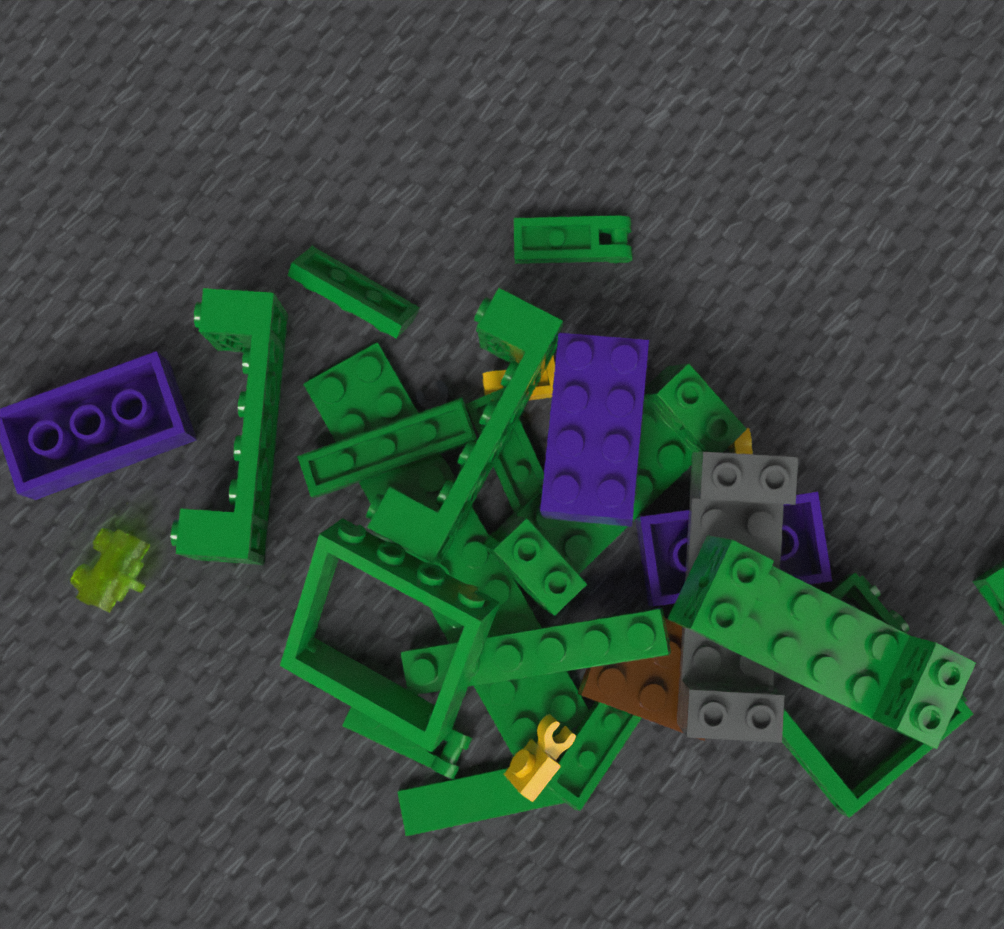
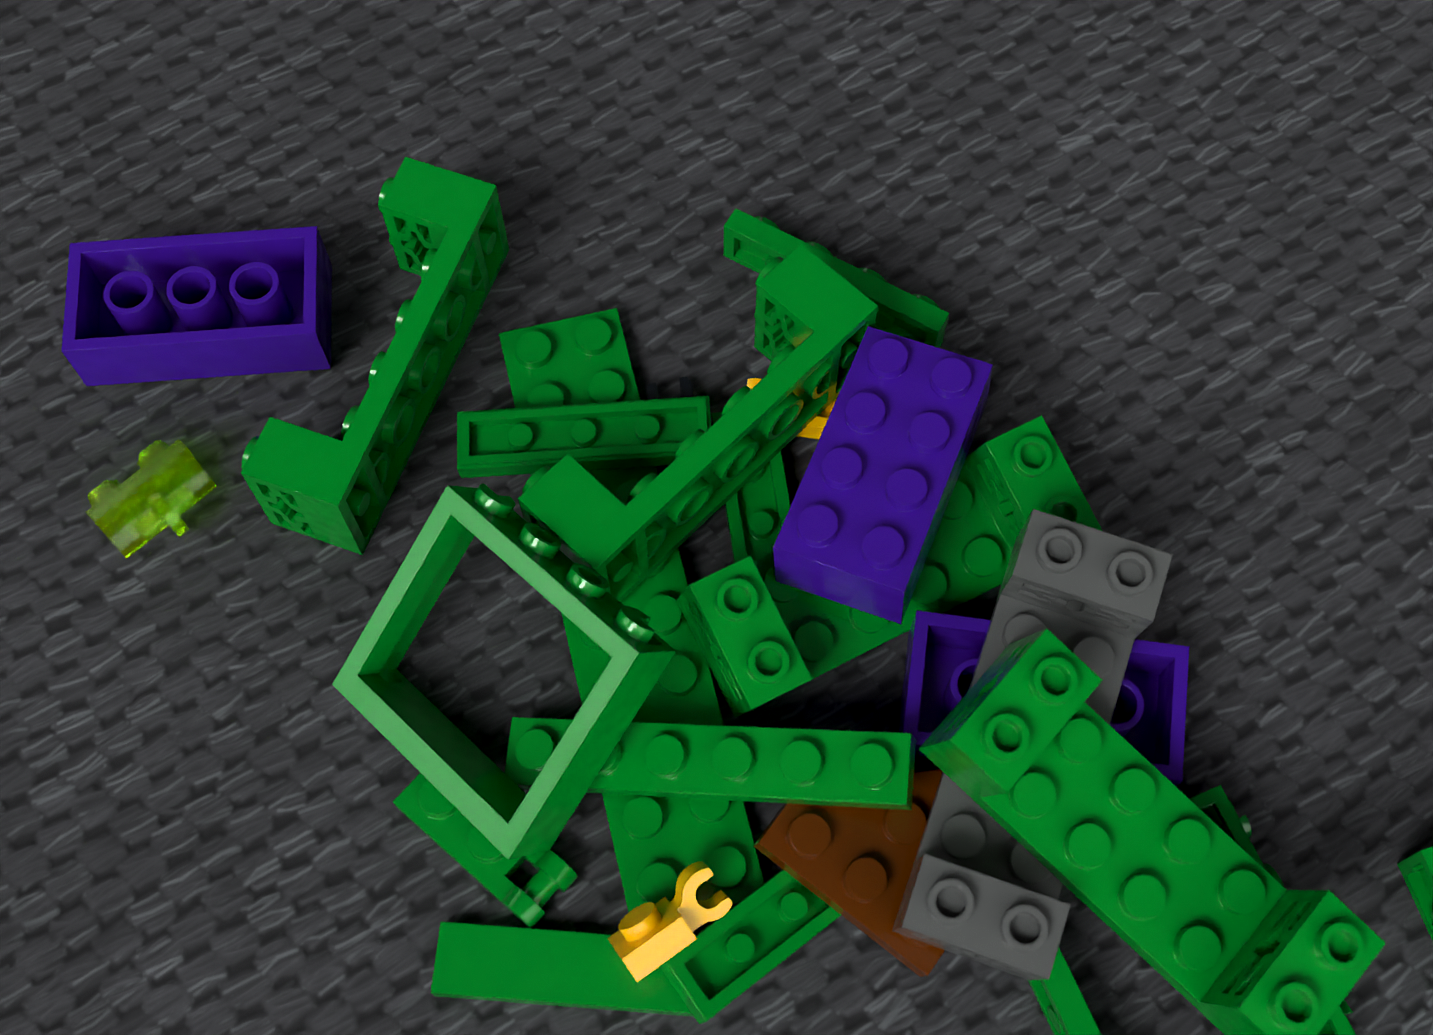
camera: 10 degrees right, 15 degrees down
(353, 292) = (605, 239): green plate -> none
(537, 285) = (913, 316): none -> green plate
(571, 239) = (922, 251): green plate -> none

